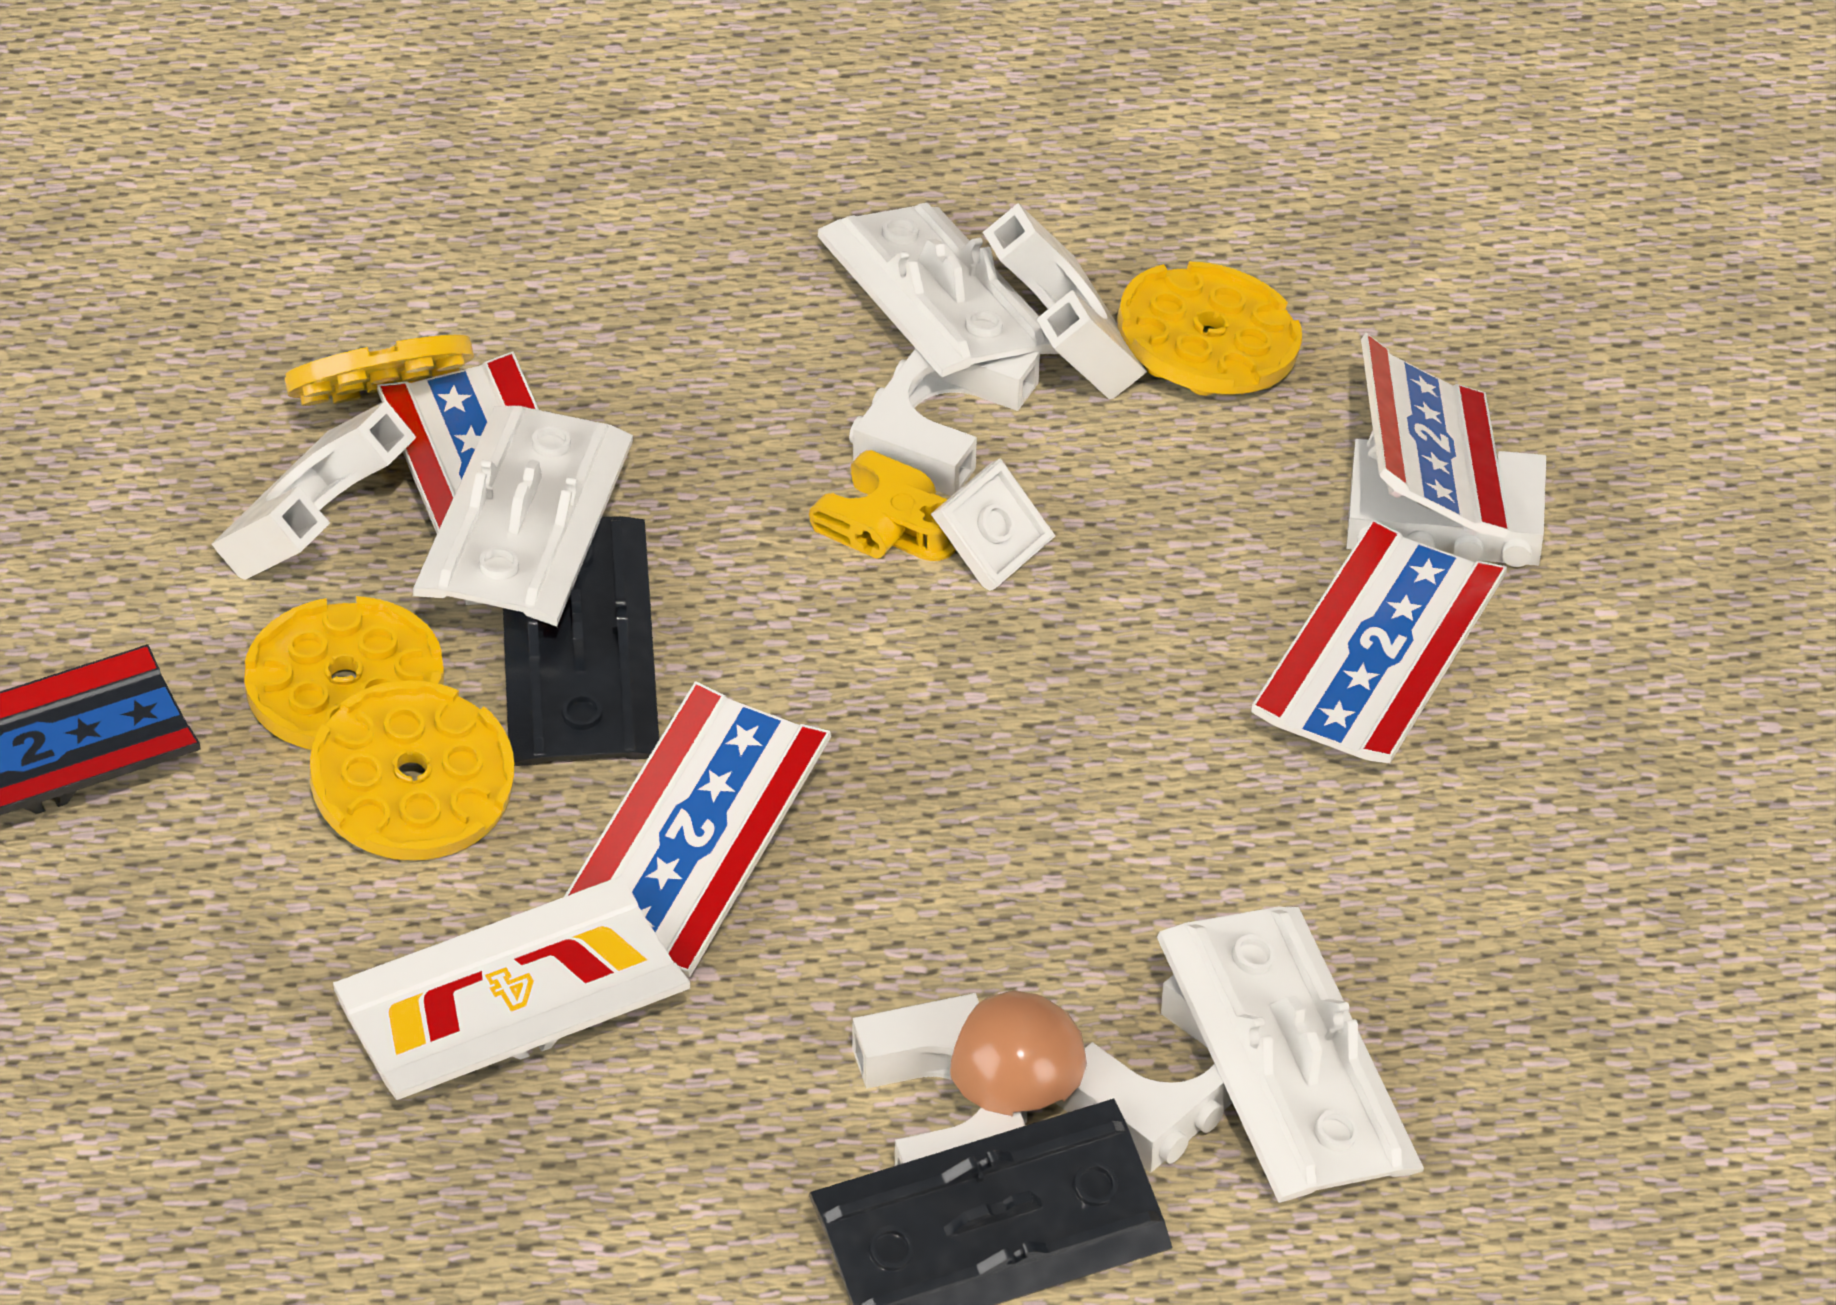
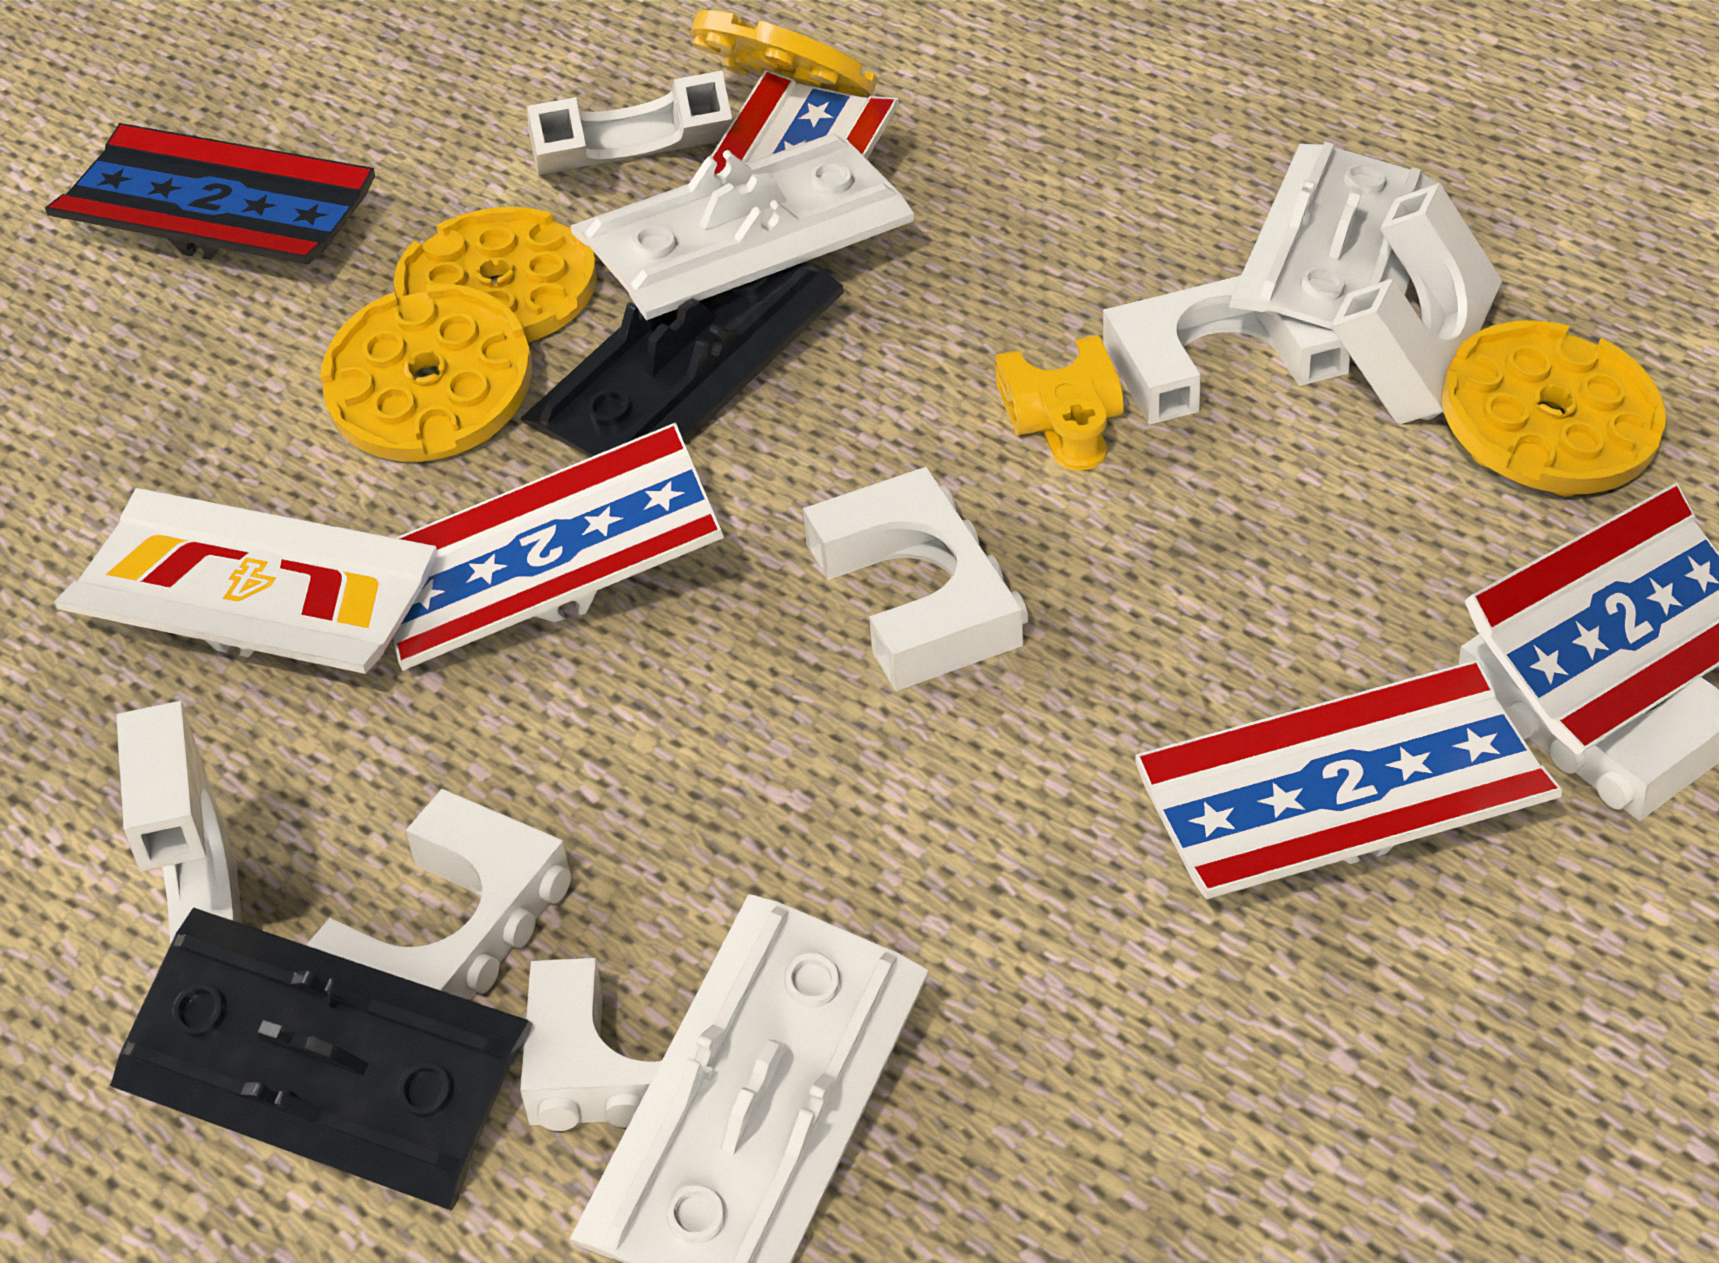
camera: 50 degrees right, 0 degrees up
(770, 1095) = (174, 814): none -> white arch
(907, 652) = (918, 519): none -> white arch
(993, 525) = (1125, 457): white tile -> none
(1018, 1054) = (509, 916): nougat cylinder -> none

